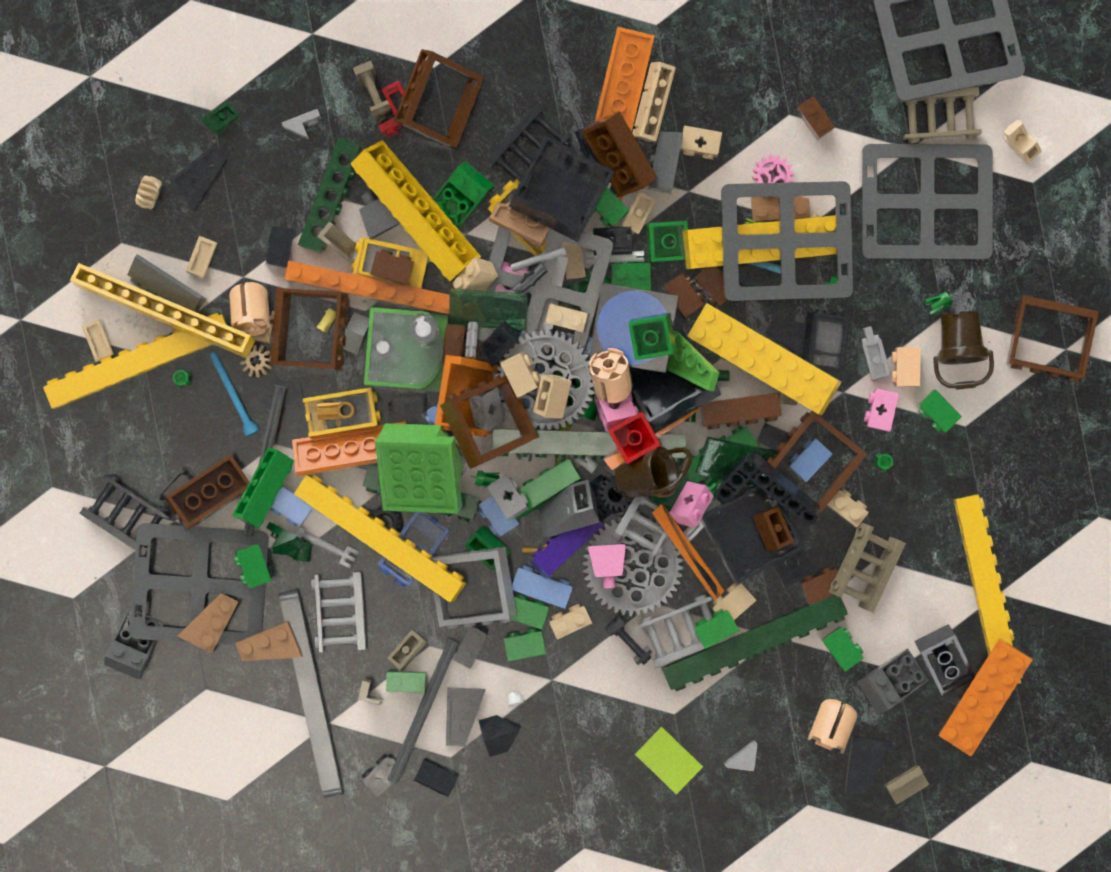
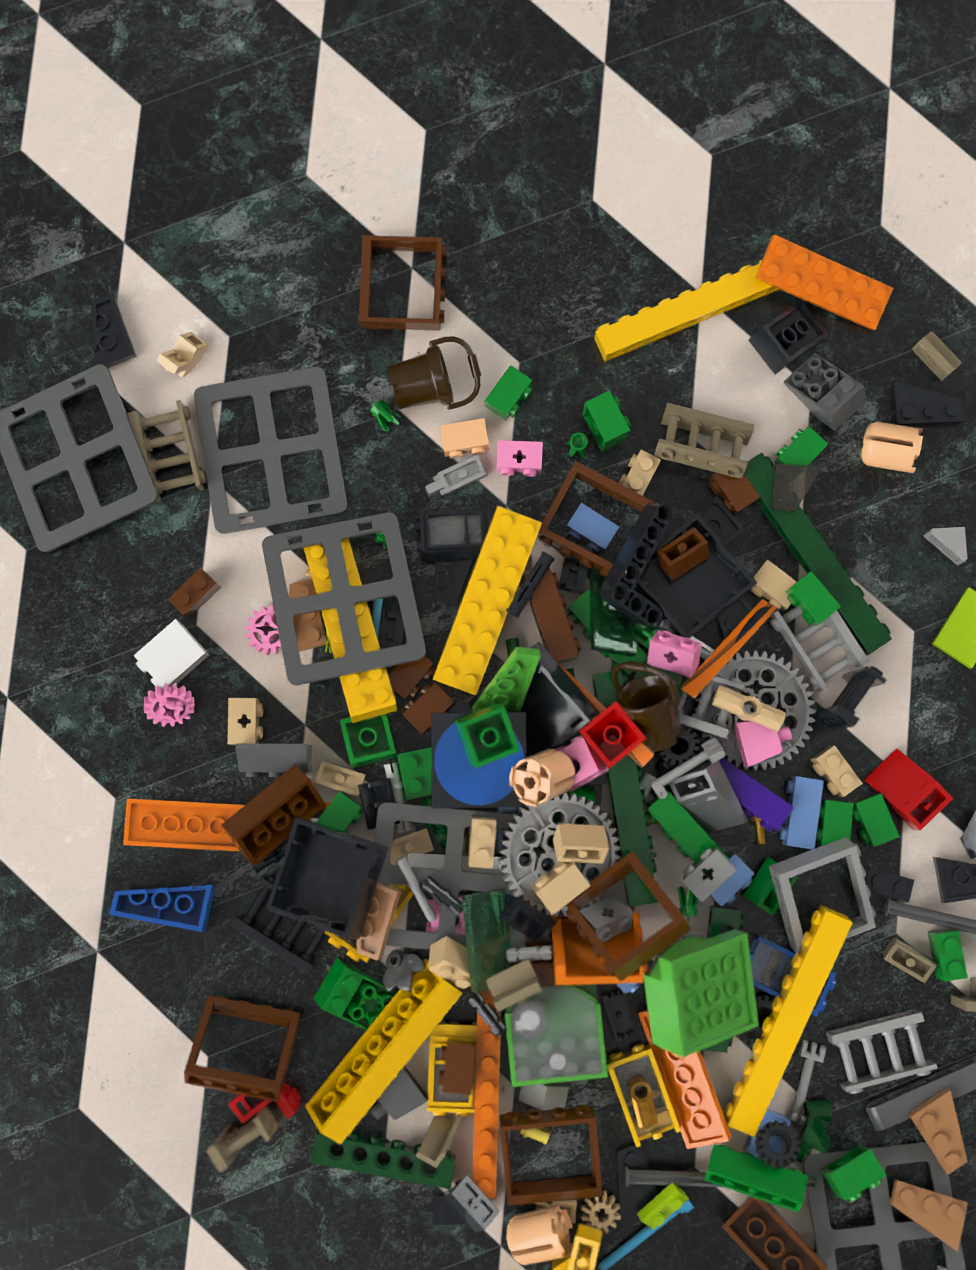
camera: 95 degrees left, 5 degrees down
(253, 411) = (663, 1206): none -> lime plate
(276, 504) = (770, 1157): none -> black tyre
(284, 259) = (471, 1204): none -> hinge
(297, 124) = (302, 1214): light grey slope -> none
(430, 298) = (487, 1013): none -> black axle
(451, 322) = (513, 984): none -> dark tan panel
(473, 235) = (402, 972): none -> dark grey plate
(515, 698) = (939, 821): white hinge -> none
(545, 677) = (908, 790): none -> red slope
(559, 61) = (176, 907): none -> blue wedge
(604, 518) = (711, 751): none -> light grey hinge
(627, 565) = (763, 714): none -> tan piece
(653, 101) = (205, 785): tan brick -> none
(725, 82) = (169, 704): none -> bright pink gear
(765, 392) = (525, 593): none -> black pin
(766, 90) = (170, 655): none -> white brick
(815, 632) = (791, 485): none -> clear smoke wing
(897, 488) = (606, 421): none -> green brick
(1050, 82) = (111, 336): none -> black wing

